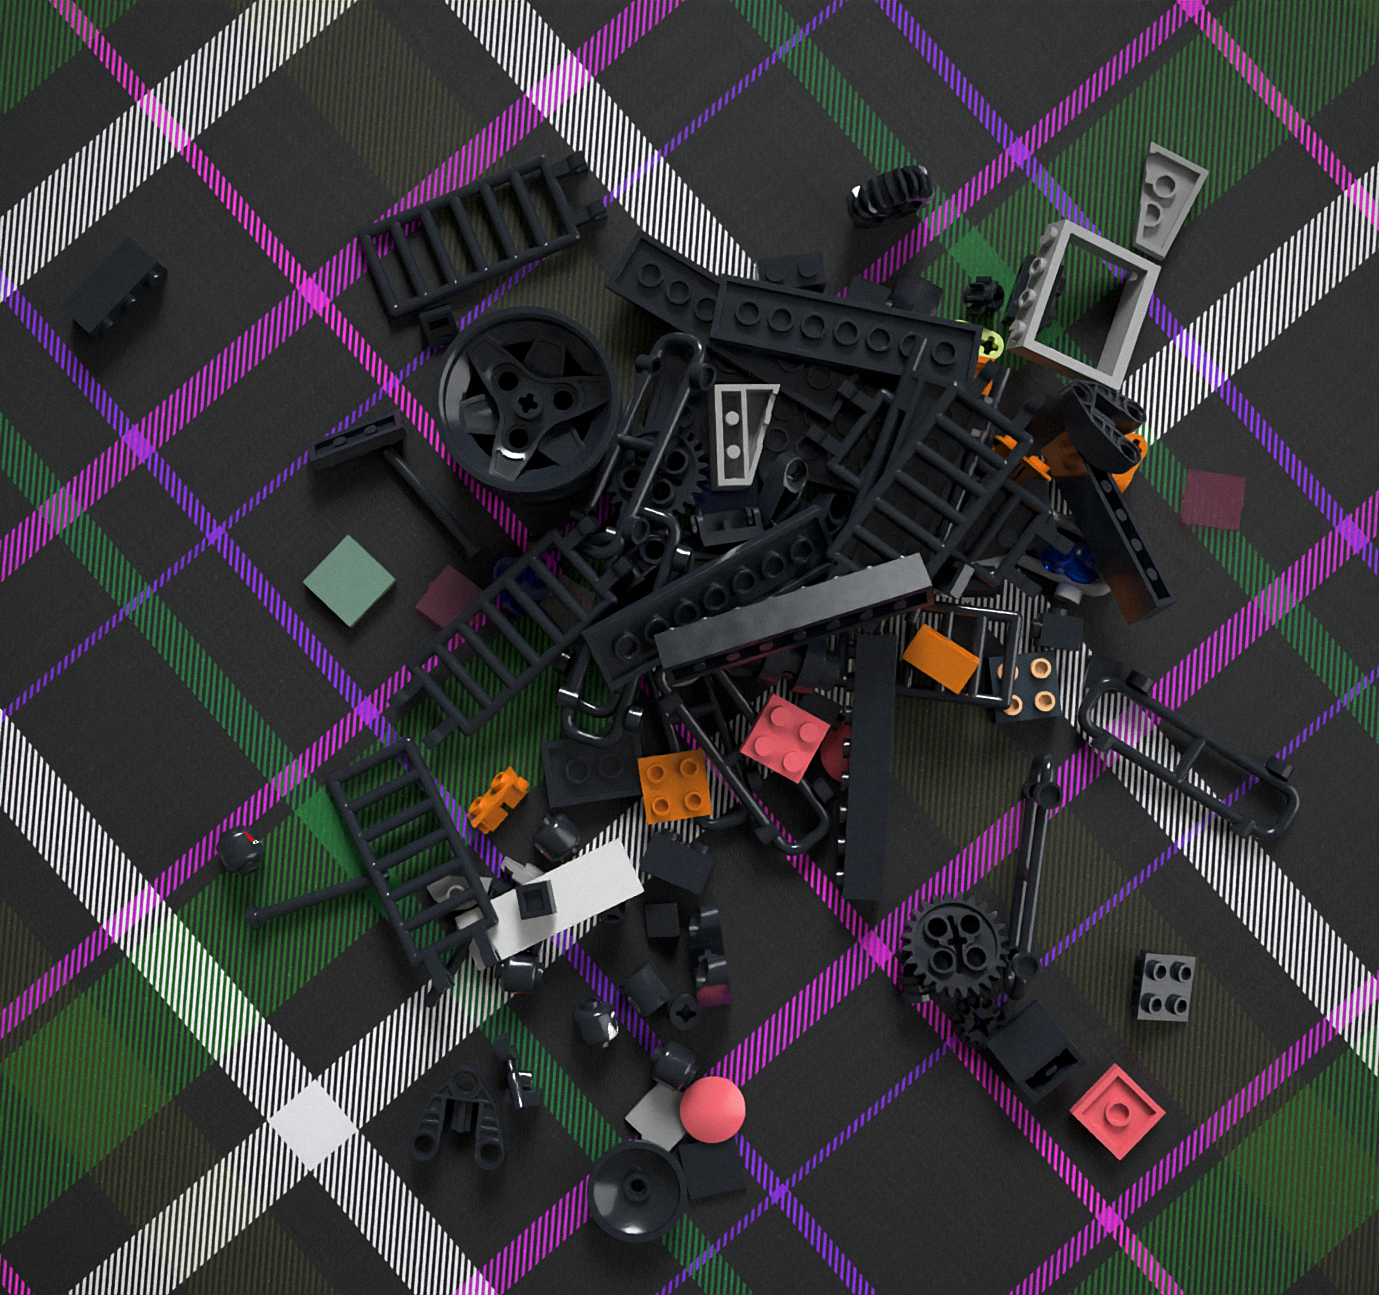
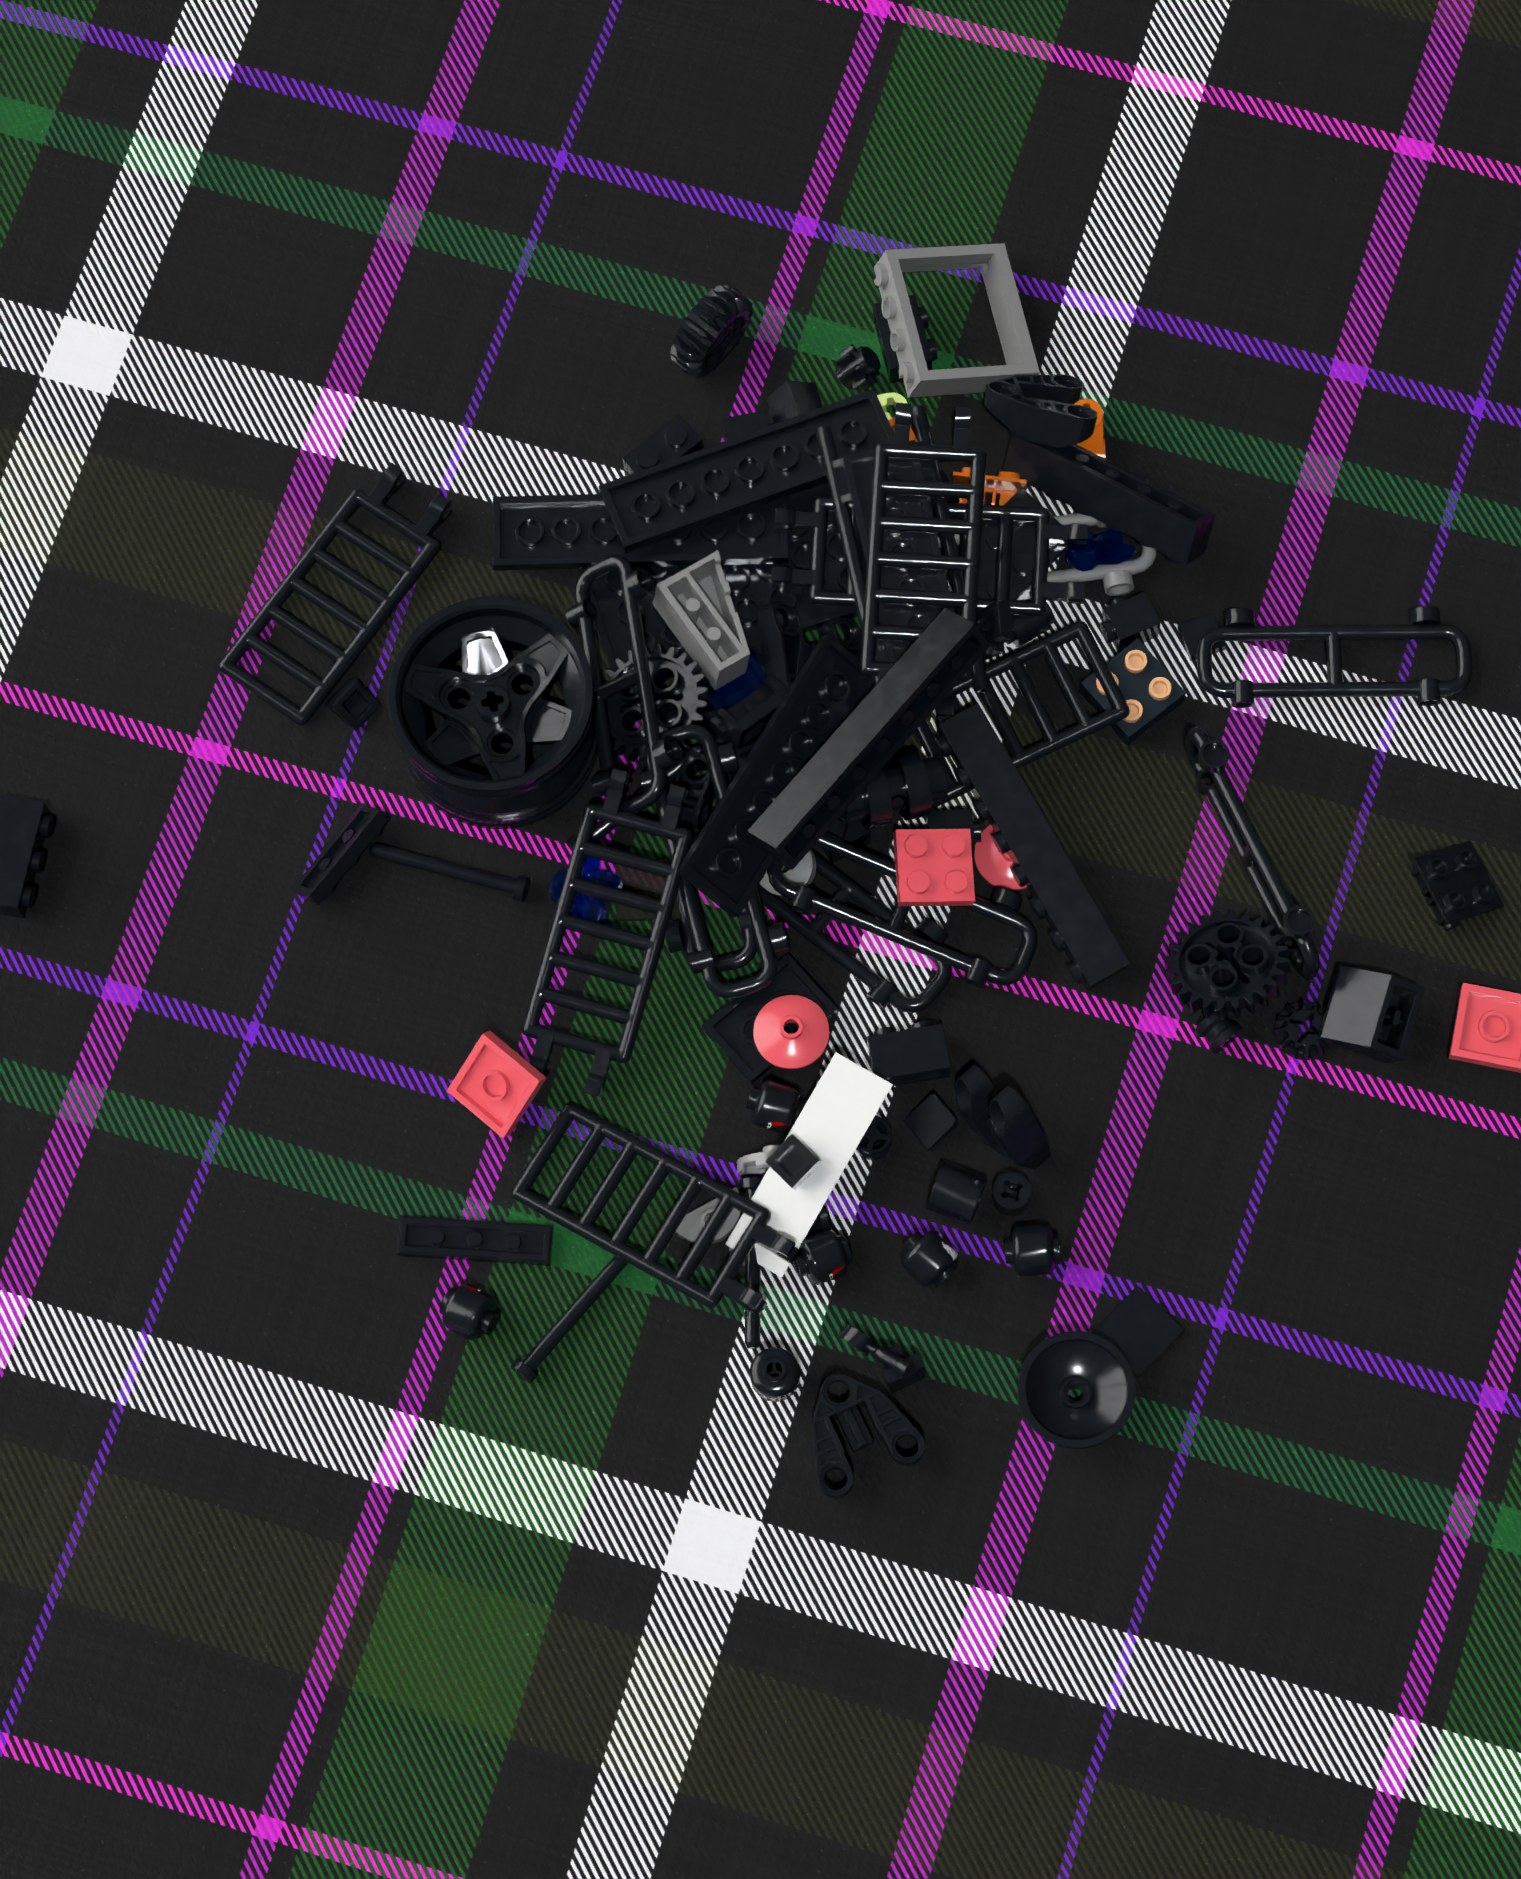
camera: 25 degrees left, 15 degrees down
(280, 796) = (475, 1240): none -> black tile
(349, 581) = (415, 992): sand green tile -> none
(361, 693) = (496, 1084): none -> coral plate
(434, 1029) = (778, 1387): none -> black head
(448, 597) = (522, 949): clear pink piece -> none
(486, 810) = (695, 1092): orange hinge -> none
(611, 775) = (795, 1049): none -> coral dish
(659, 1116) = (1056, 1307): light grey piece -> none
(675, 786) = (859, 984): orange hinge -> none
(712, 1109) = (1100, 1273): coral dish -> none
(941, 658) = (1033, 702): orange hinge -> none
(1165, 199) = (969, 184): light grey wing -> none
(1212, 500) = (1197, 420): clear pink piece -> none

